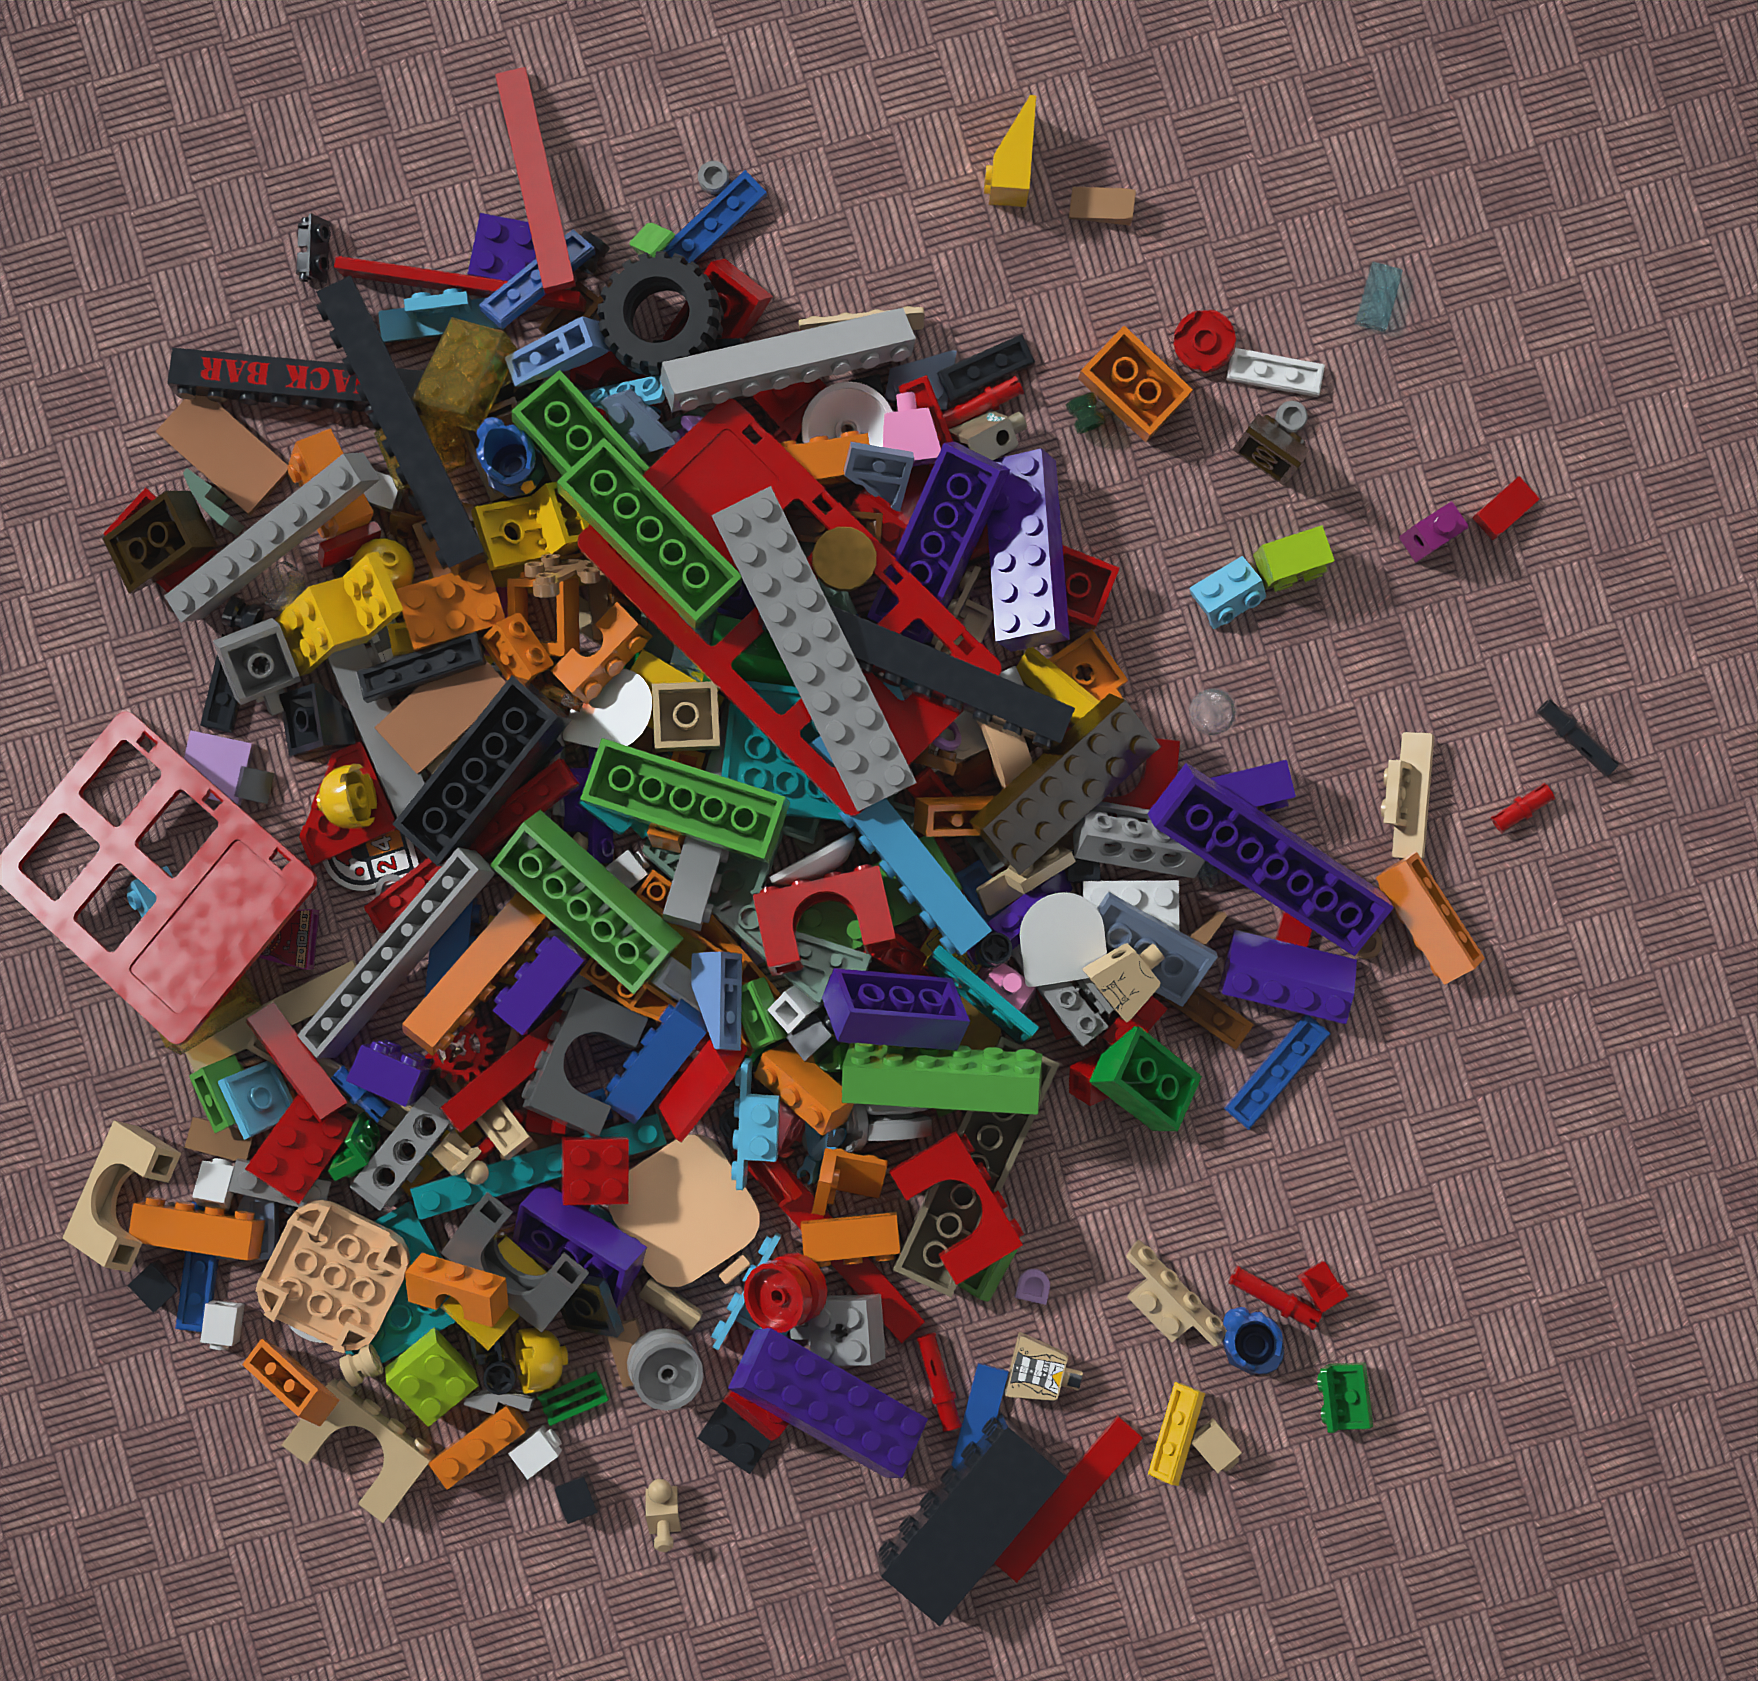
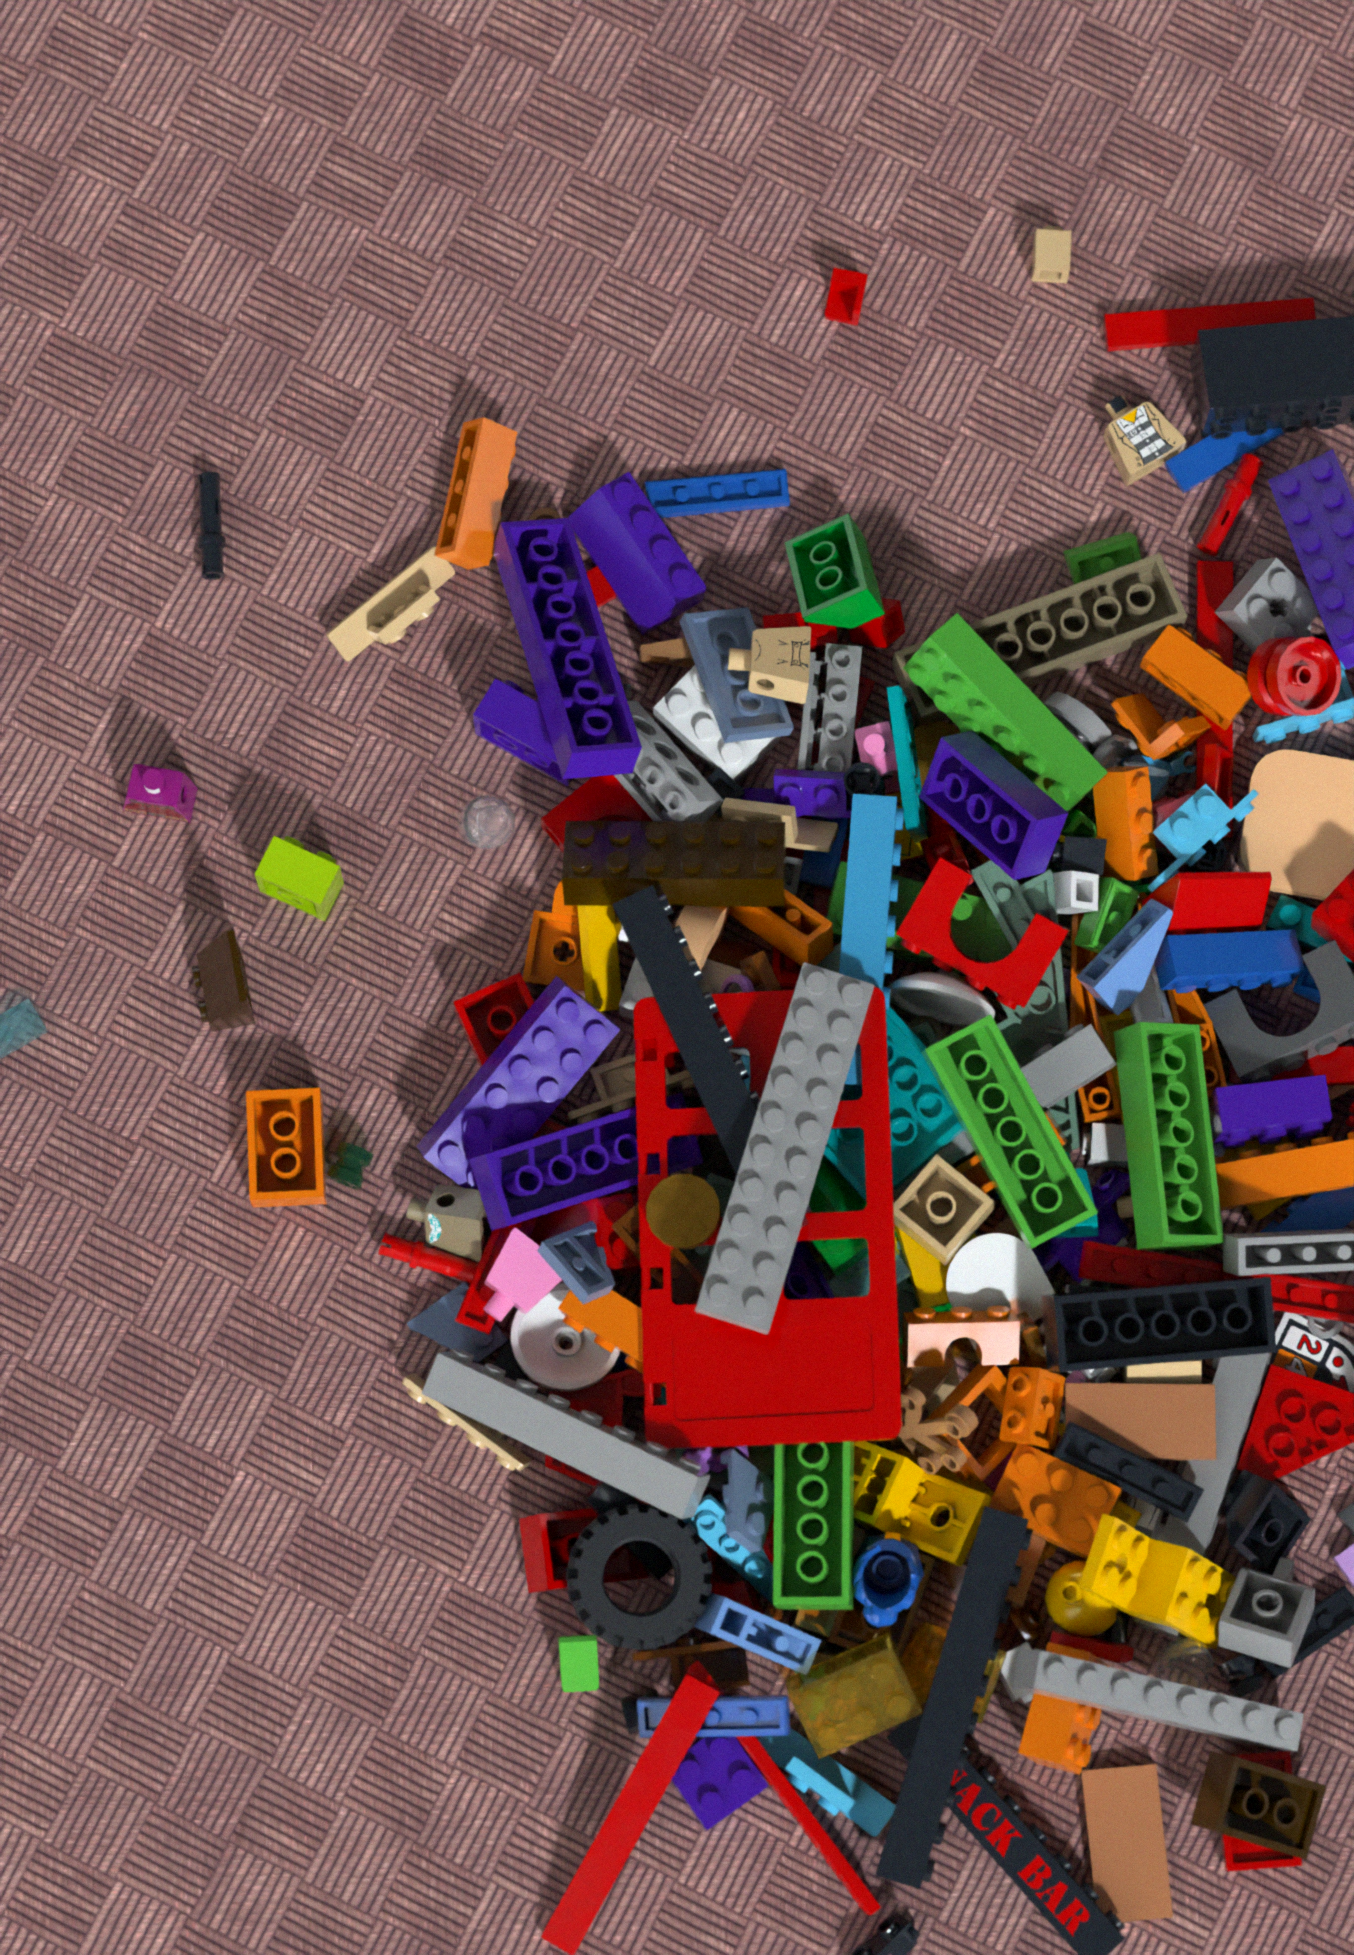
camera: 140 degrees left, 10 degrees down
(211, 501) = (1178, 1809): sand green slope -> none
(348, 797) = (1294, 1421): yellow cylinder -> none
(649, 533) = (832, 1375): bright green brick -> none
(713, 177) = (468, 1678): light grey tile -> none
(717, 218) = (505, 1634): blue plate -> none
(735, 1268) = (1316, 742): light nougat tile -> none
(986, 367) = (395, 1284): black tile -> none
(994, 1234) = (1079, 565): red arch -> none
(1011, 168) = (202, 1433): yellow slope -> none
(1033, 1286) = (1081, 509): lavender tile -> none
(1060, 939) = (800, 741): white sticker -> none
(1103, 205) = (159, 1331): medium nougat slope -> none
(1168, 1301) = (981, 397): tan bracket -> none
(1176, 1433) = (1074, 292): yellow tile -> none
(1204, 341) = (189, 1132): red tile -> none
(1214, 1017) = (725, 575): reddish brown plate -> none
(1229, 592) = (377, 906): medium azure bracket -> none
(1252, 1341) = (943, 304): piece -> none
(1275, 372) = (155, 1052): white tile -> none
(1283, 1302) = (888, 311): red pin -> none
(1291, 416) = (180, 1002): light grey tile -> none
(1345, 1396) = (910, 198): green bracket -> none
(1505, 508) = (80, 761): red slope -> none
(1523, 808) = (311, 511): red pin -> none

